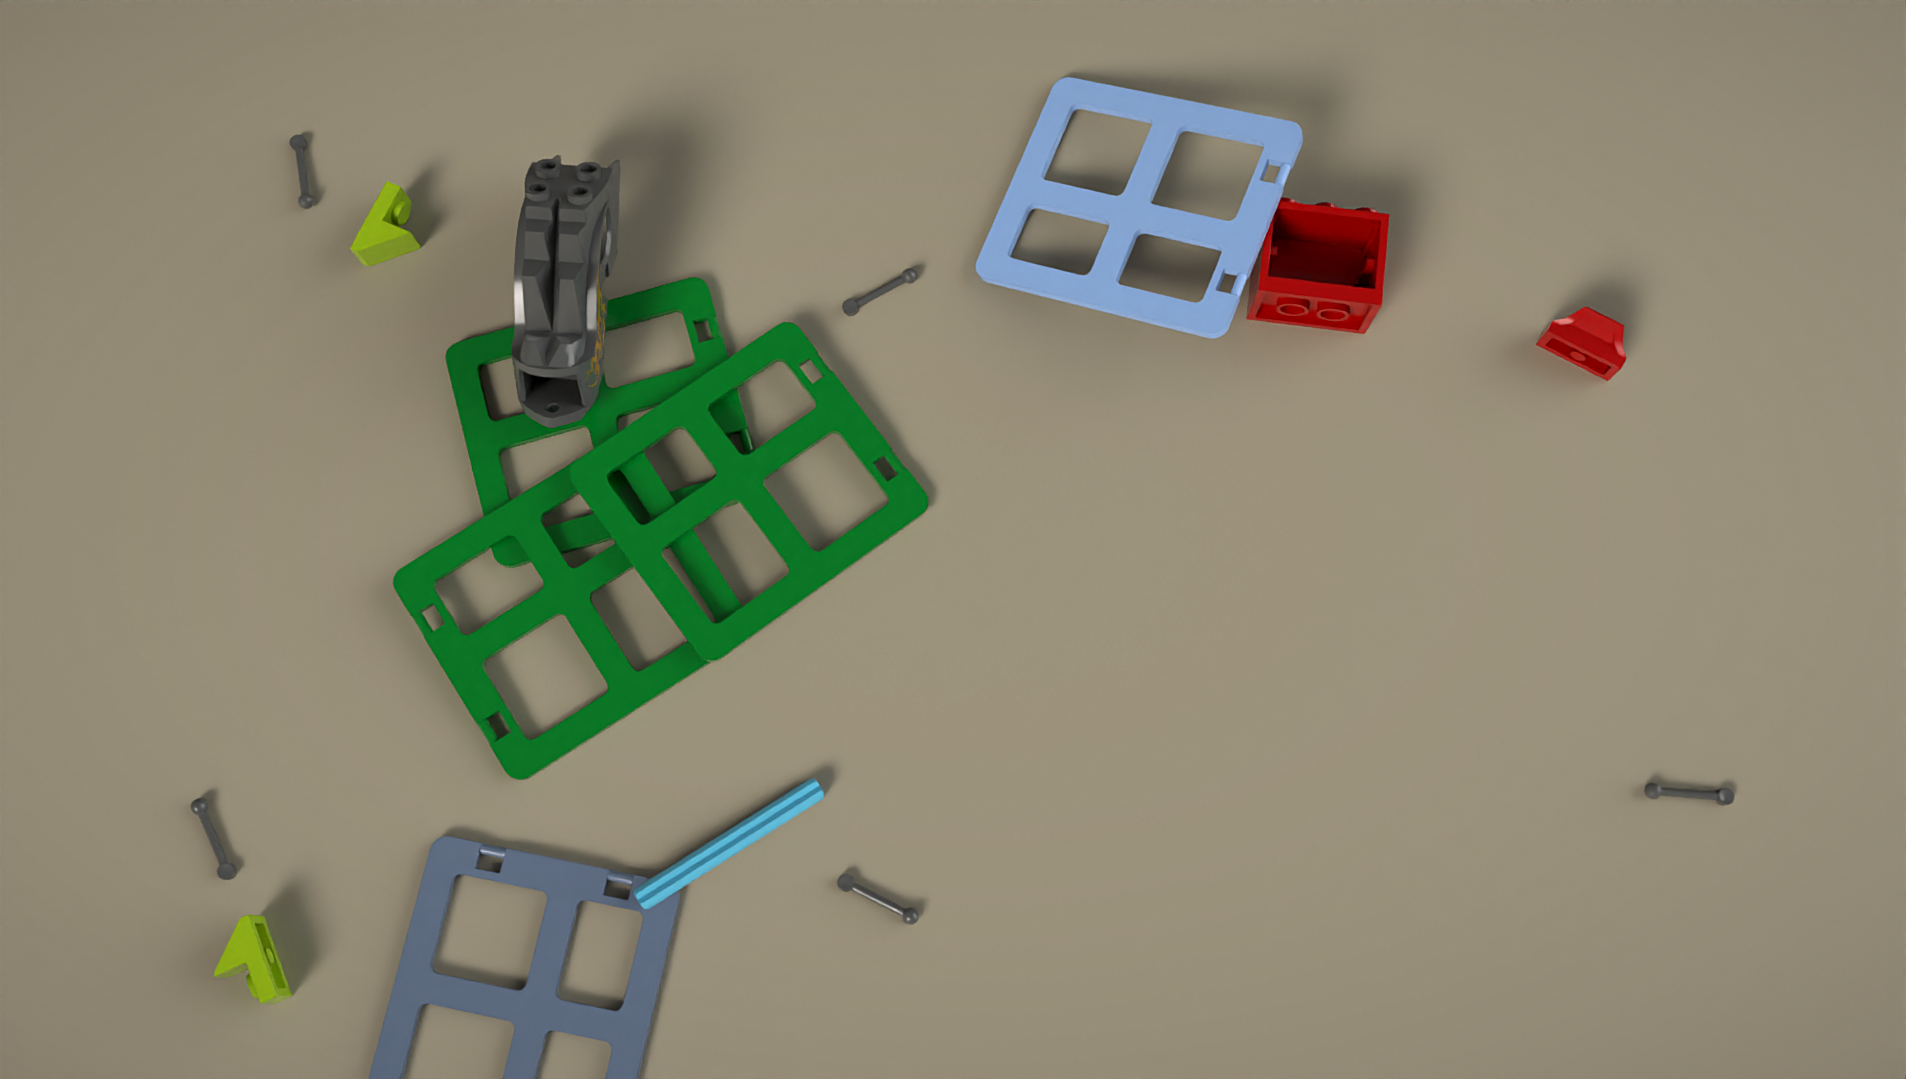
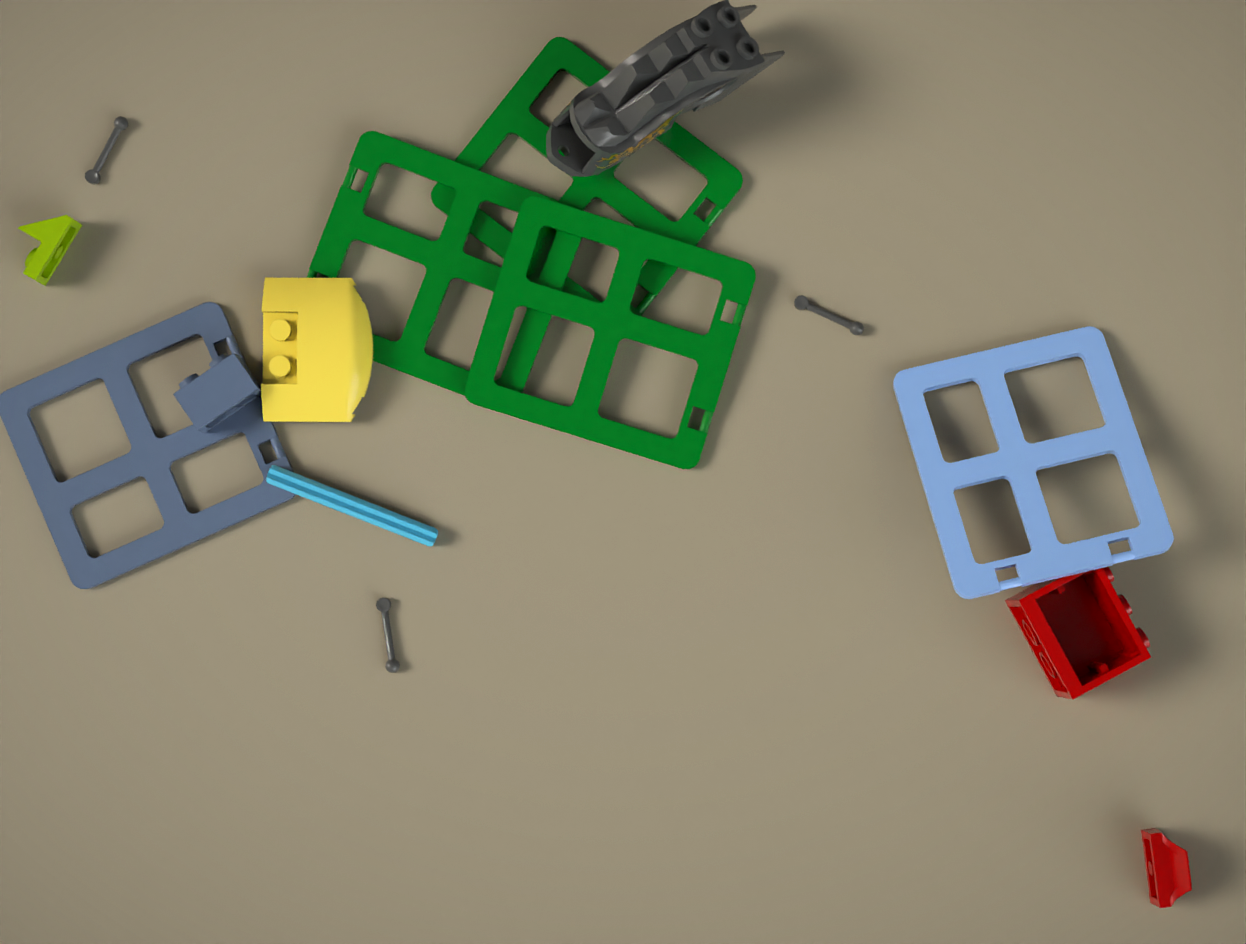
camera: 55 degrees right, 10 degrees up
(523, 892) = (217, 392): none -> sand blue brick
(556, 773) = (314, 349): none -> light yellow slope

